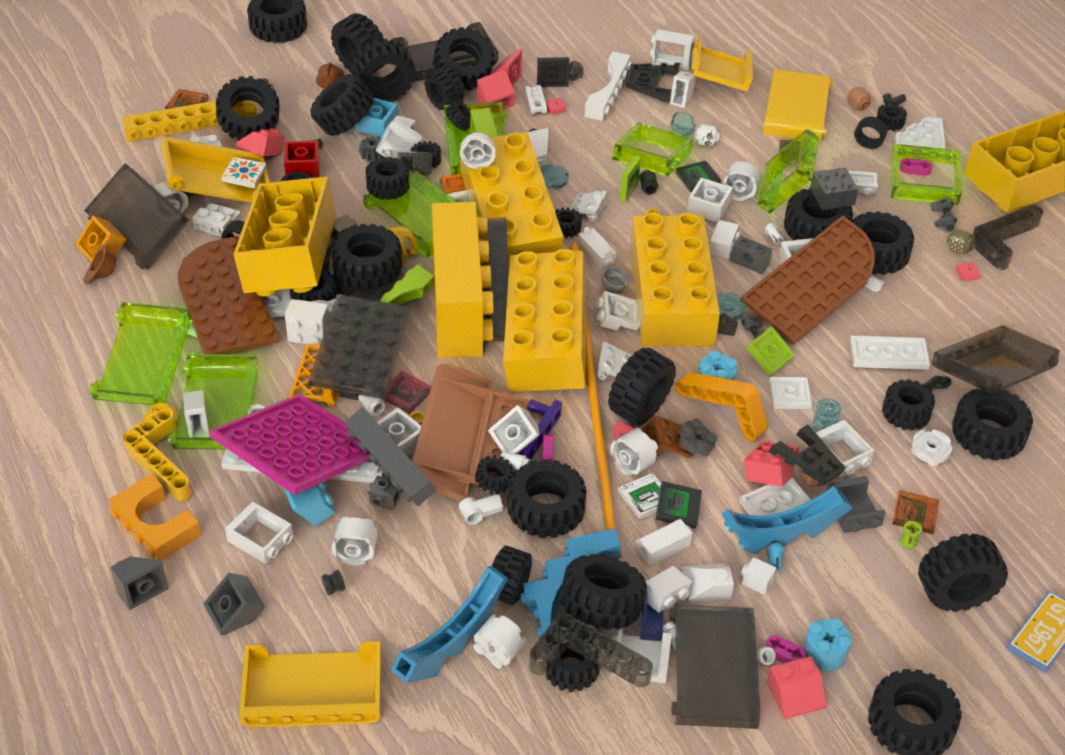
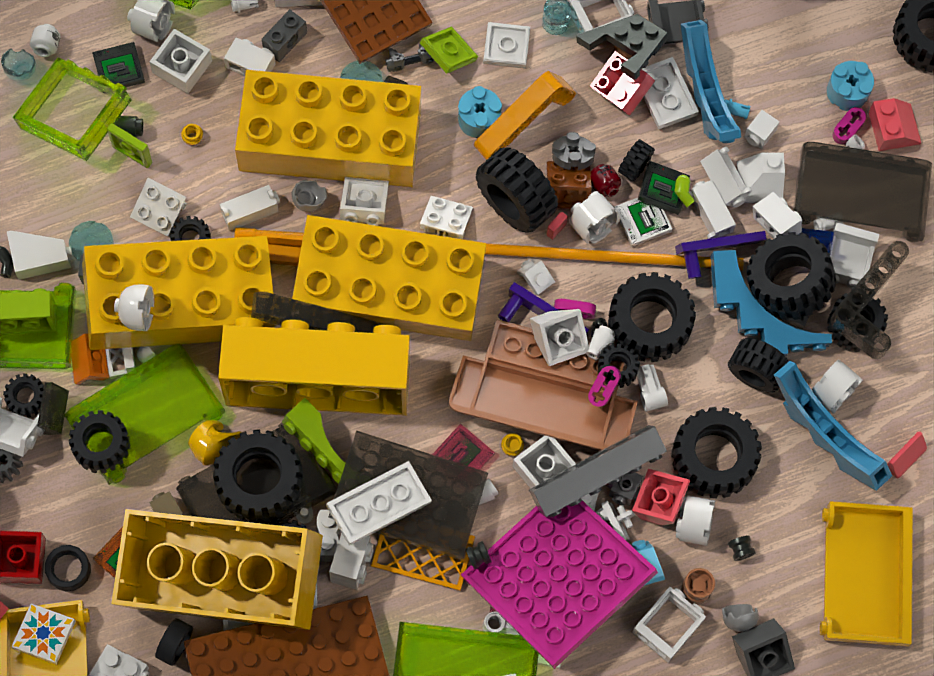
camera: 85 degrees left, 25 degrees up
(266, 582) = (740, 617): none -> light grey hair
(294, 548) = (698, 585): none -> nougat wheel
(313, 395) = (478, 555): none -> pearl dark grey wheel
(346, 316) = (378, 503): none -> white plate
(351, 490) = (609, 513): none -> white hips
(379, 509) = (660, 497): none -> coral slope
(426, 574) = (729, 427): none -> black tyre
(438, 713) = (907, 455): none -> coral slope
(469, 457) = (609, 388): none -> dark pink beam
(574, 423) = (536, 275): none -> white bracket
(618, 521) = (691, 248): none -> dark purple piece
(674, 462) = (605, 180): none -> dark red head
(677, 512) = (682, 190): none -> lime arm
(699, 476) = (636, 160): none -> black tyre
(699, 547) = (726, 177): none -> white brick

